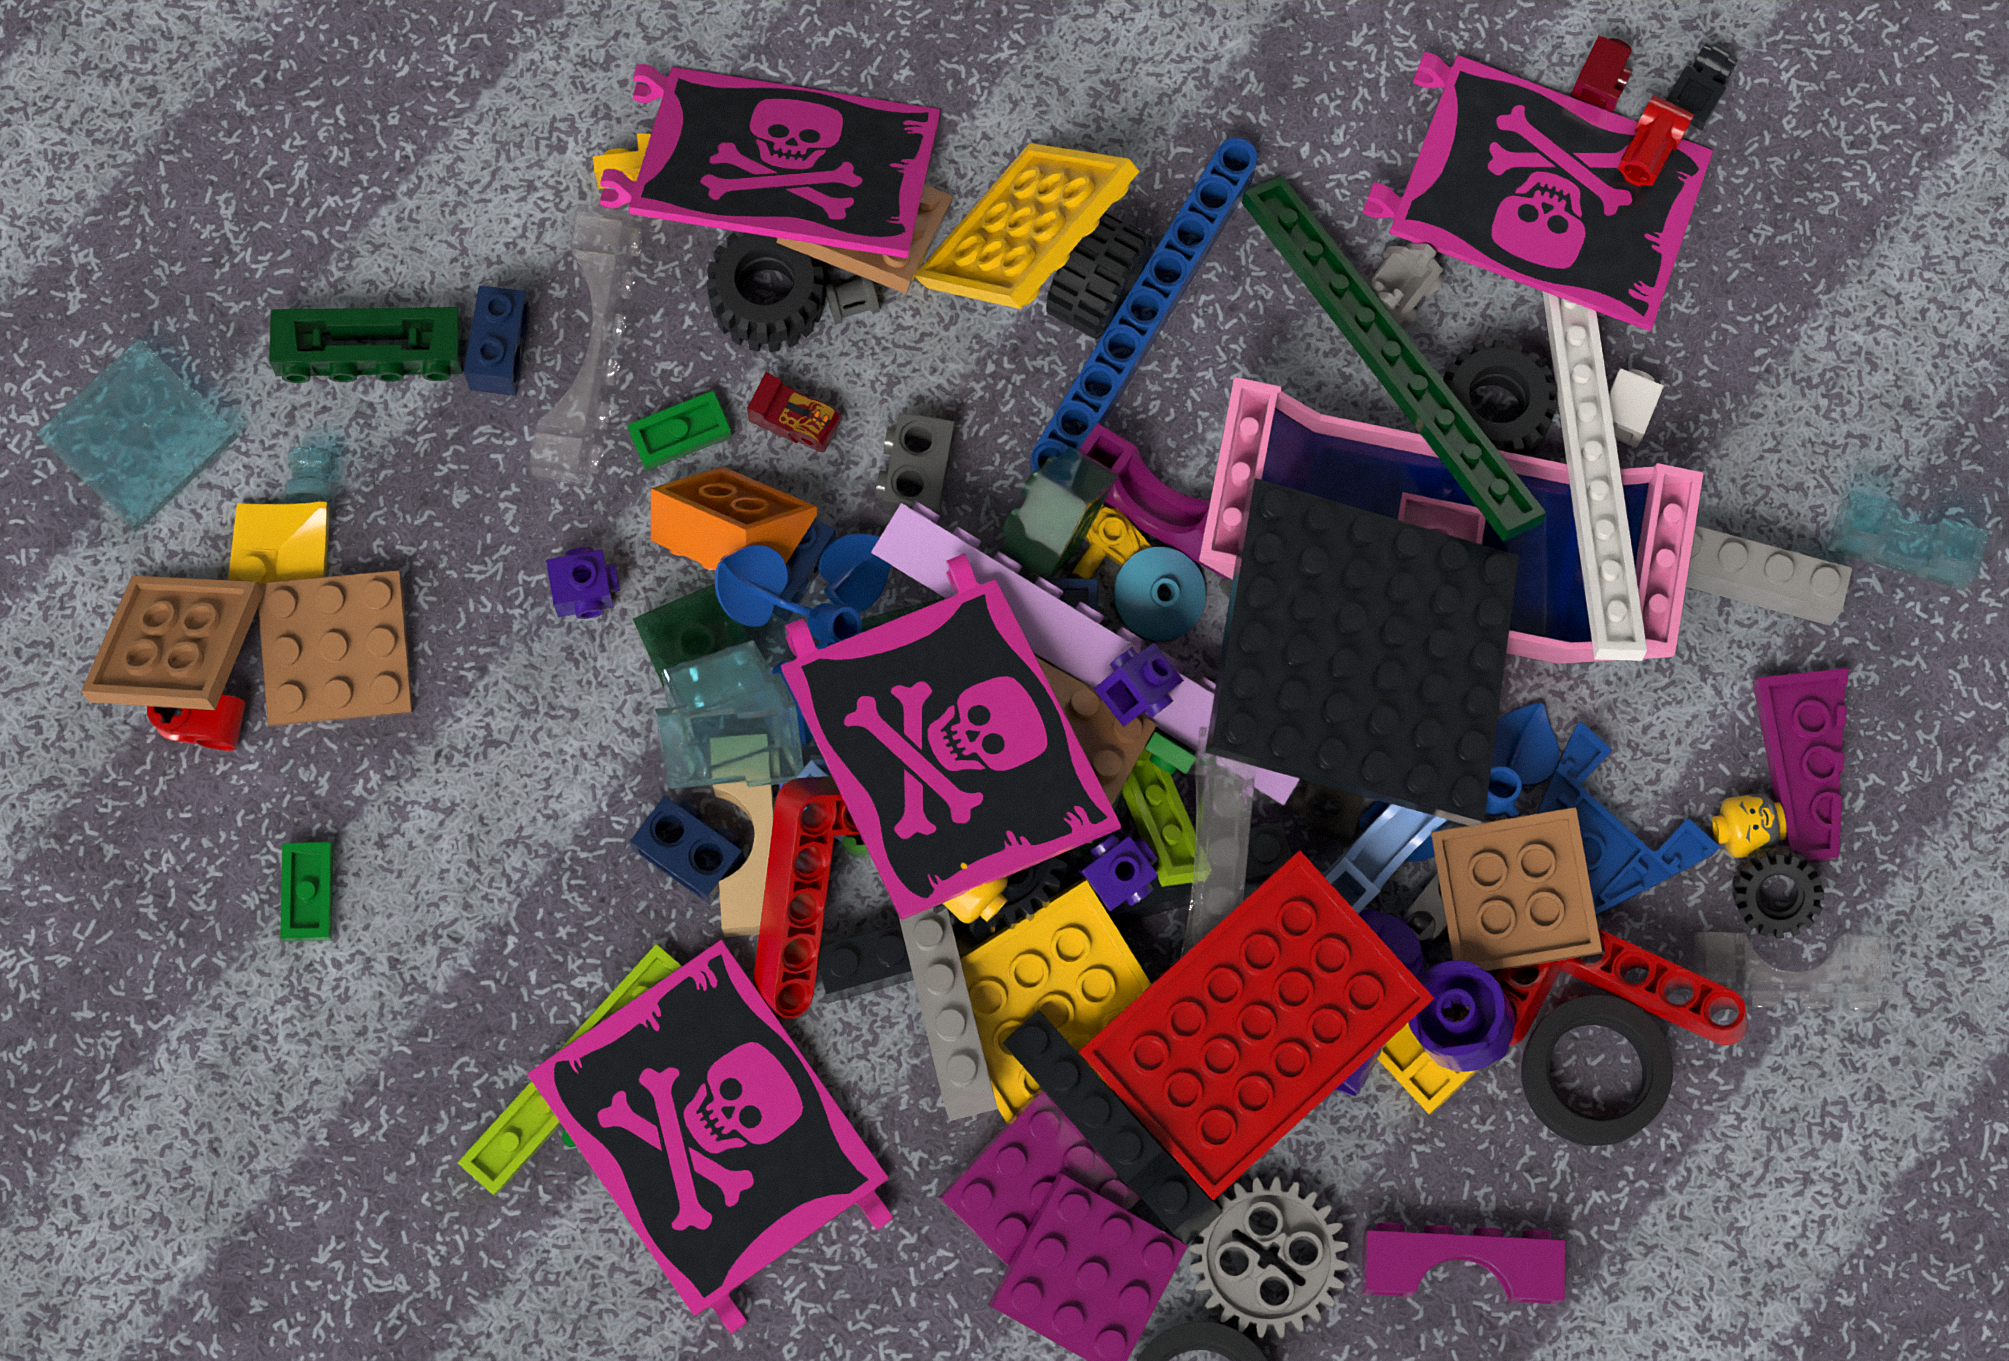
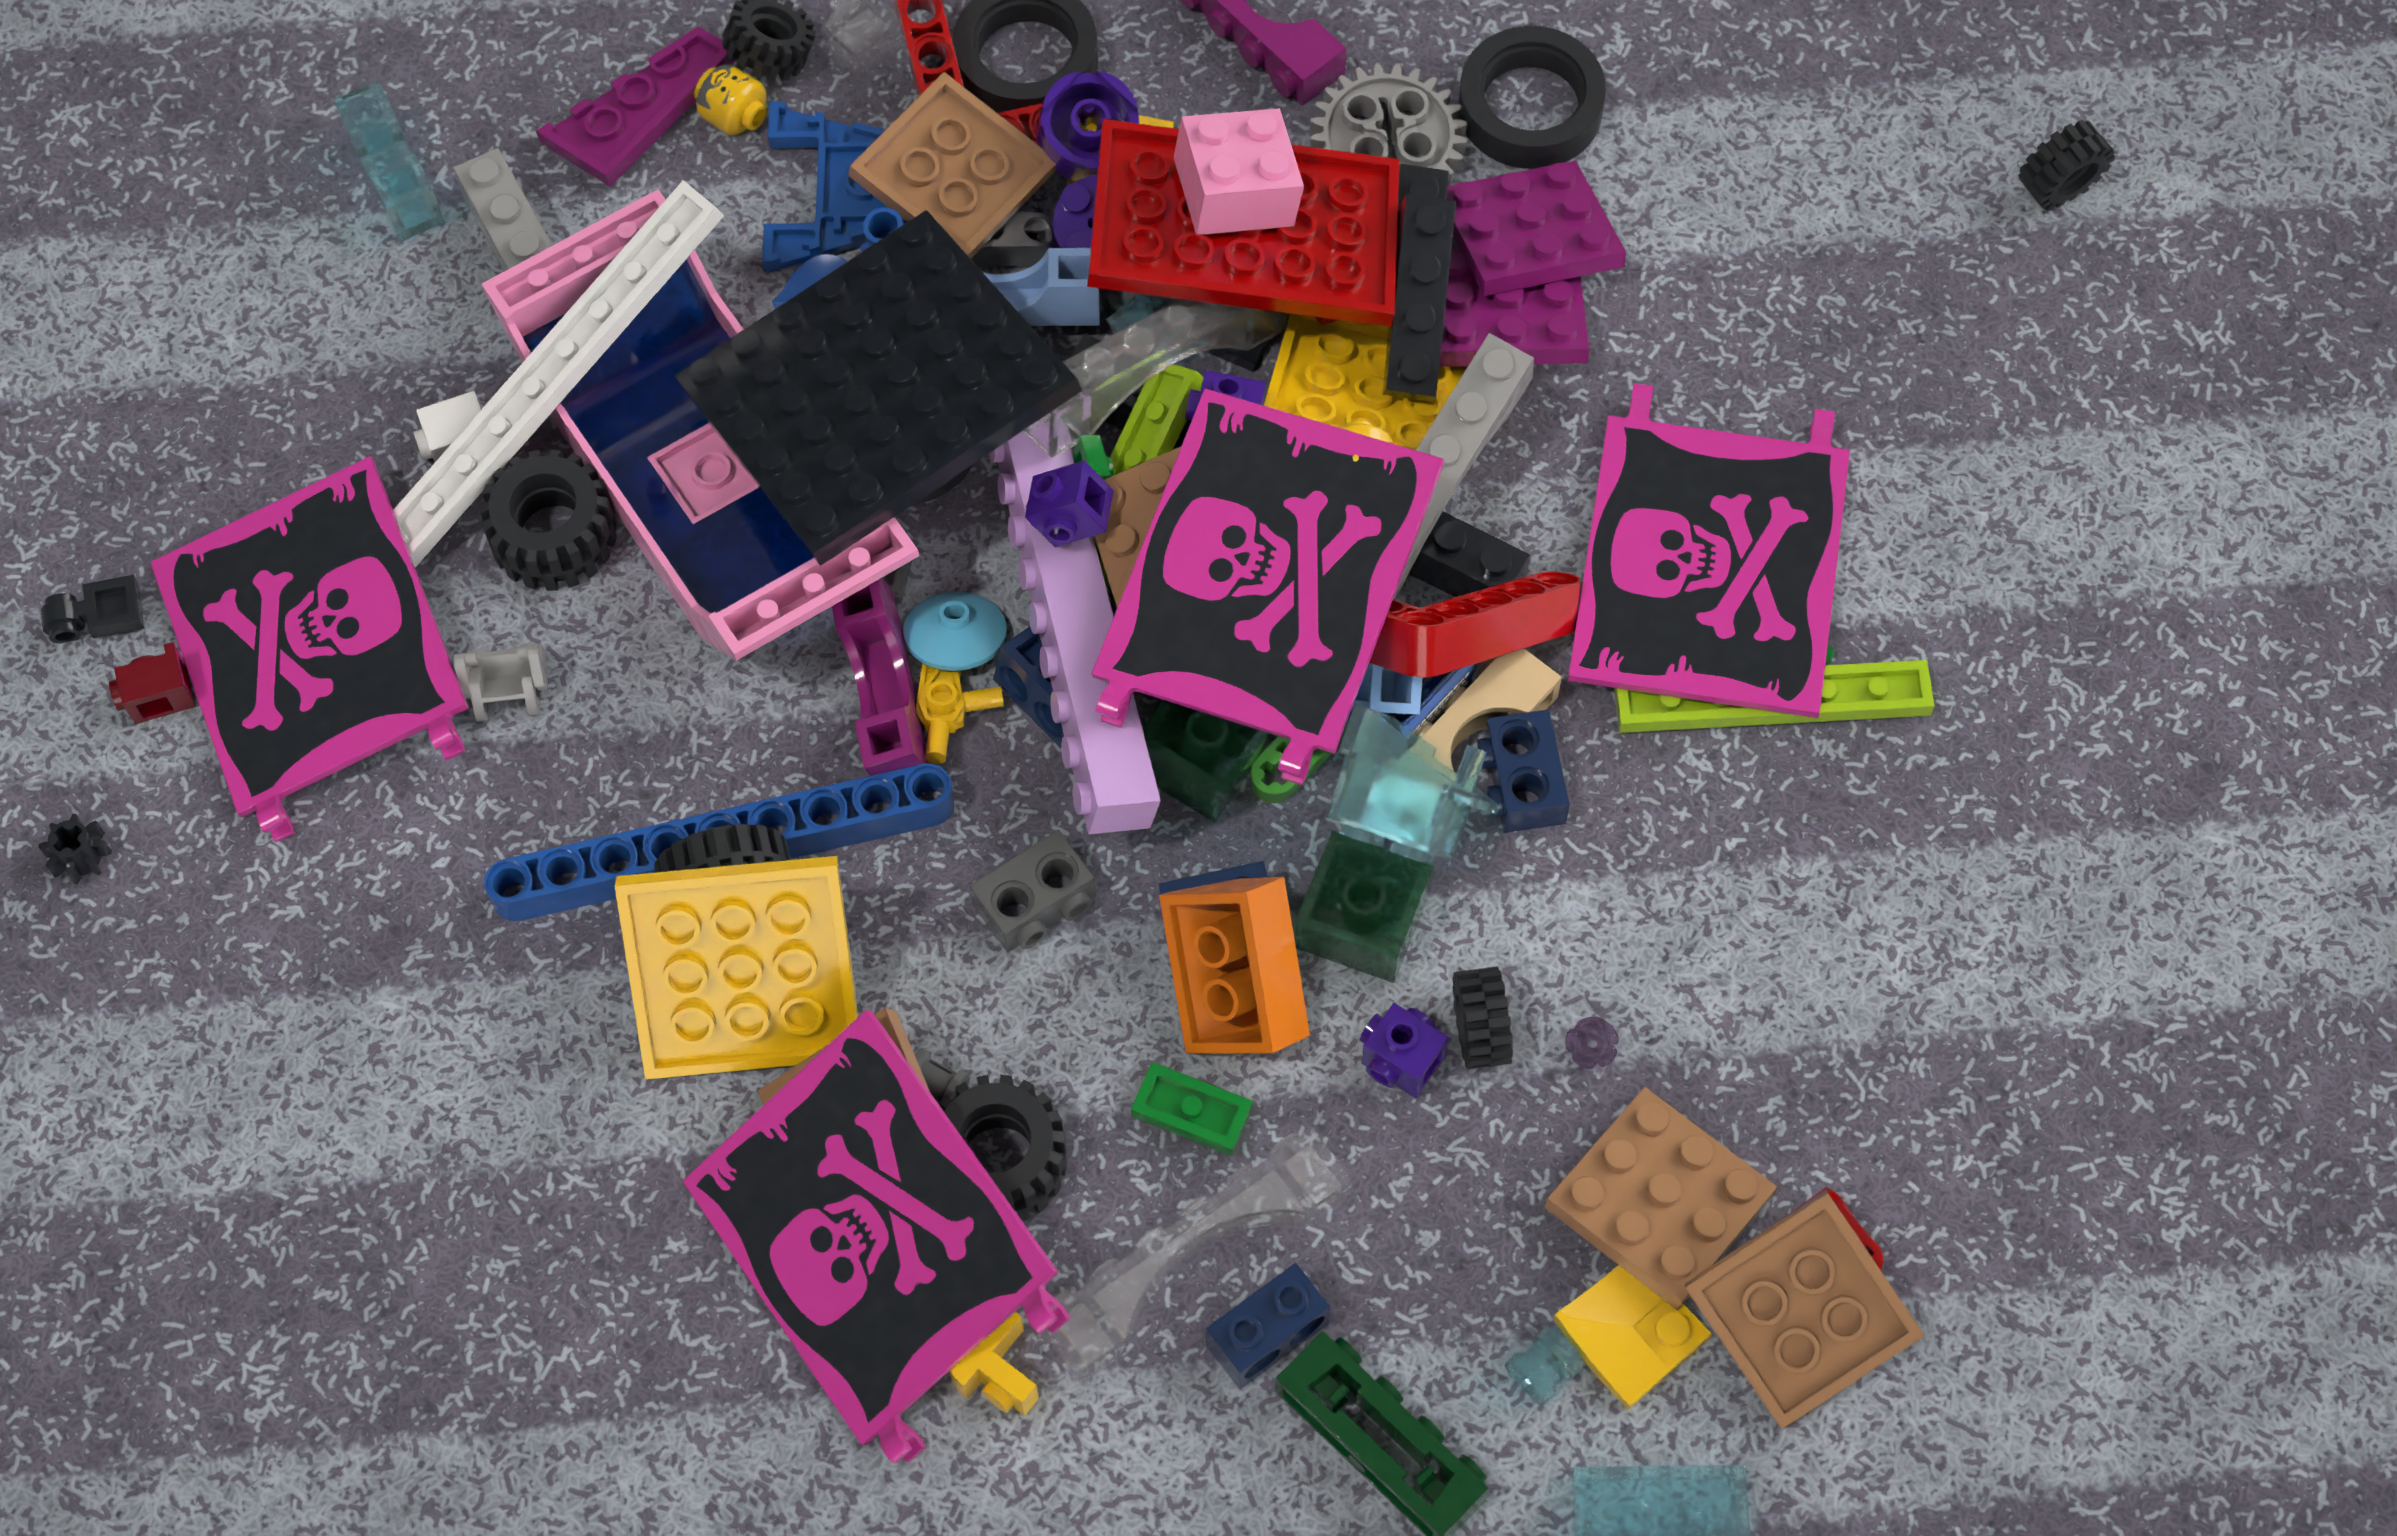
camera: 130 degrees left, 10 degrees down
(306, 892) = (1867, 1021): green plate -> none
(472, 699) = (1592, 1029): none -> clear purple plate
(549, 645) = (1482, 1017): none -> black tyre
(756, 575) = (1248, 789): blue plant -> none
(792, 414) = (1086, 1032): dark red leg -> none
(1057, 512) = (975, 714): brick -> none
(1289, 1036) = (1238, 171): none -> bright pink brick
(1394, 359) = (583, 609): dark green plate -> none
(1656, 136) = (171, 596): red piece -> none

